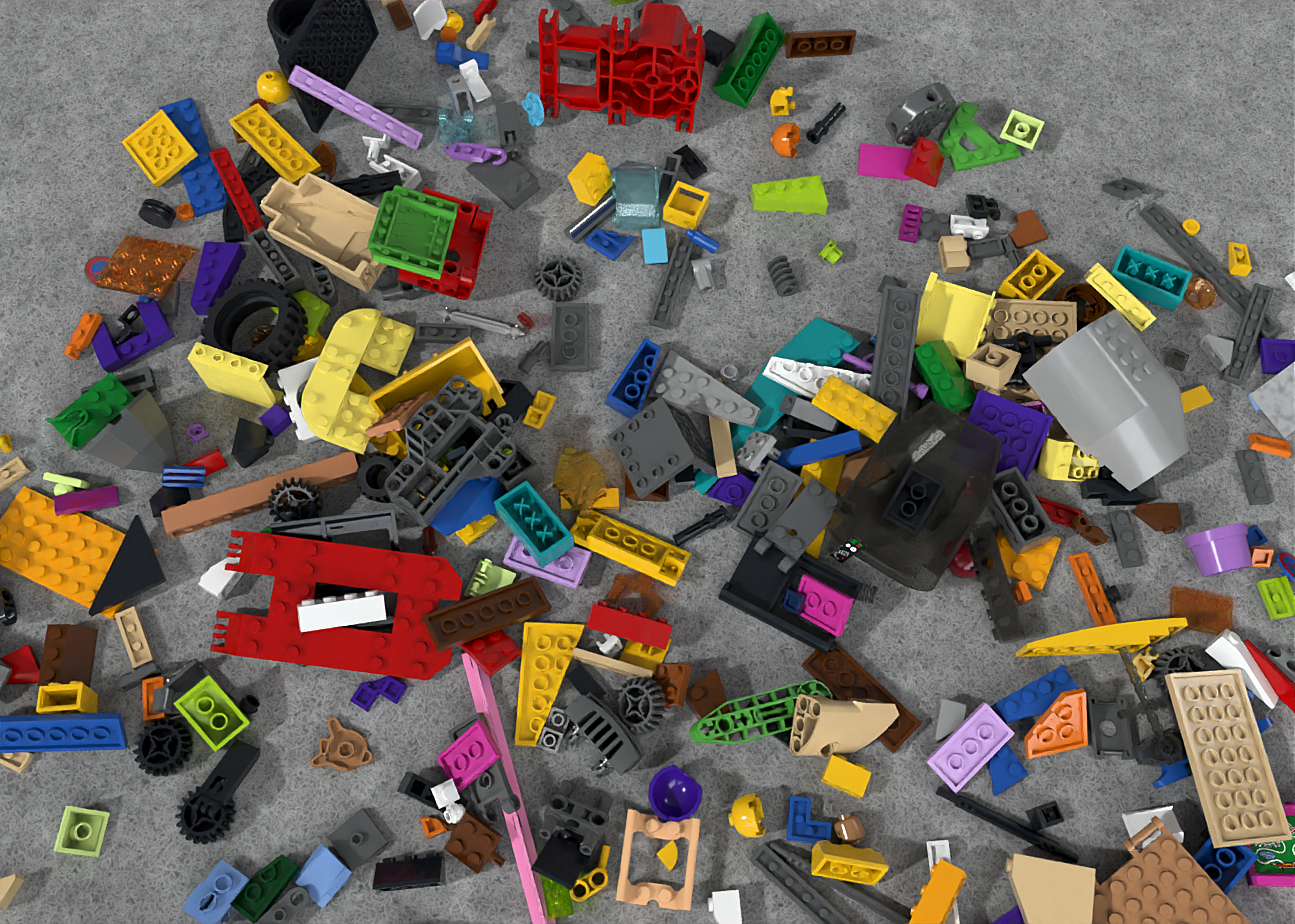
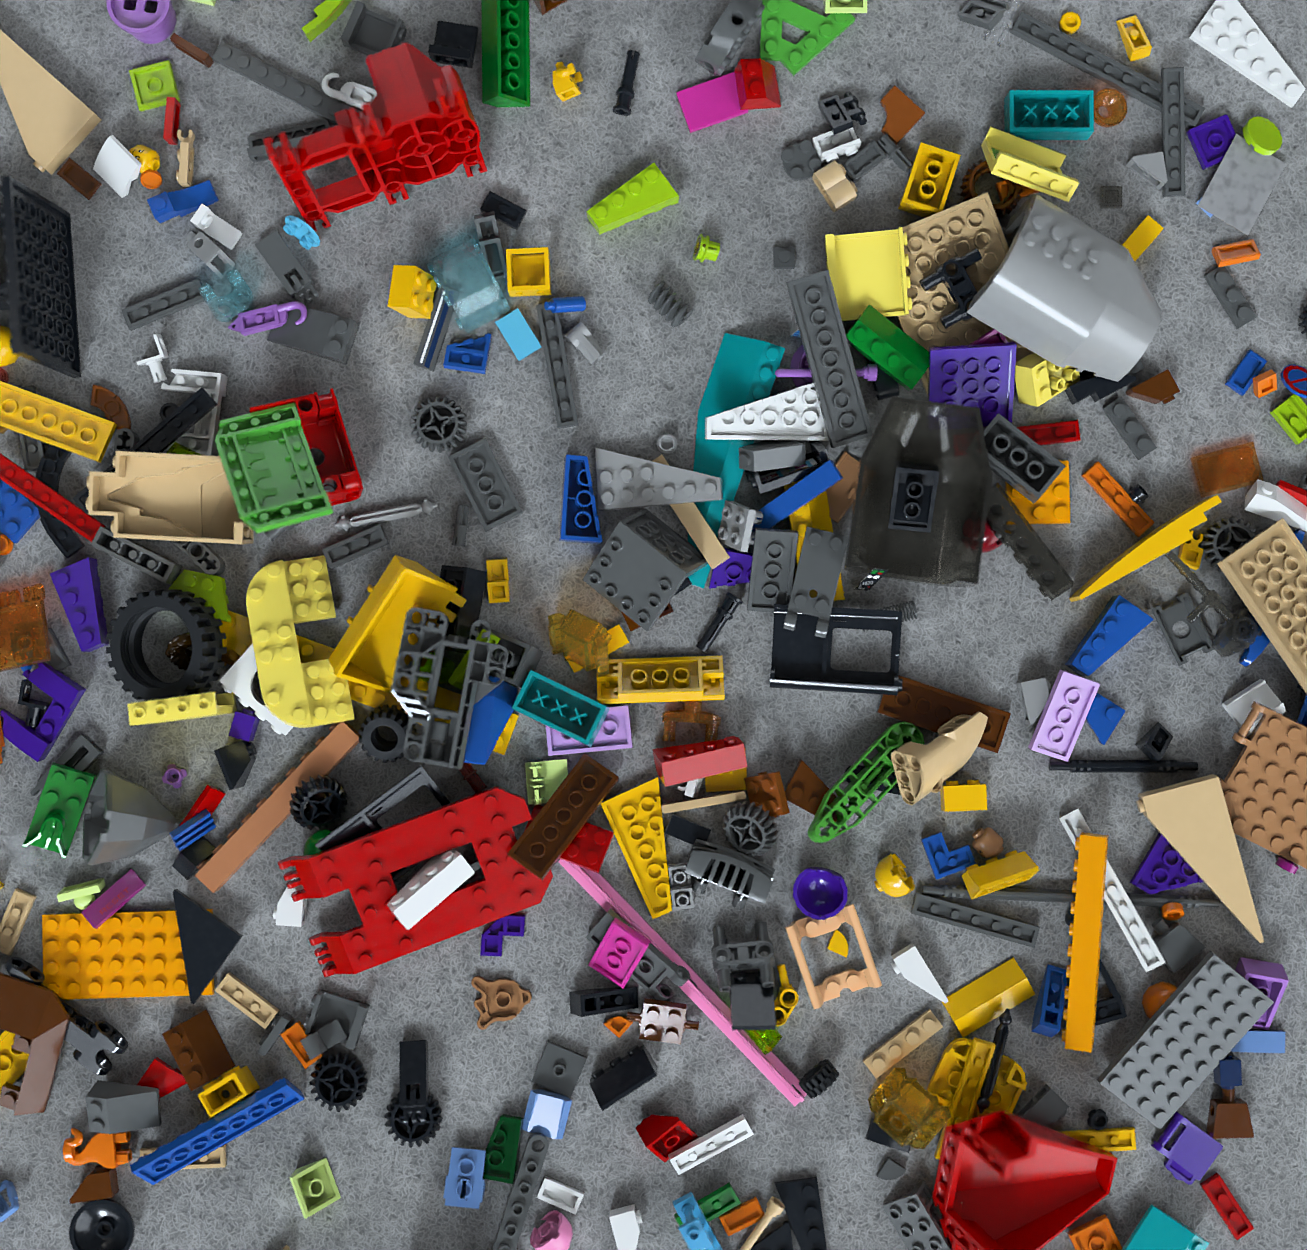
camera: 20 degrees left, 20 degrees up
(212, 713) = (368, 1035): lime slope -> none
(249, 704) = (391, 1005): black plate -> none
(354, 107) = (114, 343): lavender tile -> none
(398, 415) = (373, 673): nougat plate -> none
(446, 795) = (617, 997): white plate -> none
(457, 454) = (452, 679): sand blue tile -> none
(525, 320) = (431, 490): clear red tile -> none
(784, 138) = (594, 132): orange cylinder -> none
(794, 601) = (842, 656): dark blue tile -> none
(825, 605) = (872, 650): dark pink tile -> none
(854, 408) = (815, 433): yellow plate -> none
(914, 213) = (775, 150): magenta slope -> none
(992, 365) = (931, 313): tan slope -> none
(1021, 593) = (1052, 537): orange plate -> none
(1060, 727) = (1138, 656): orange plate -> none
(1090, 533) = (1099, 441): reddish brown plate -> none
(1220, 549) = (1226, 401): medium lavender piece -> none

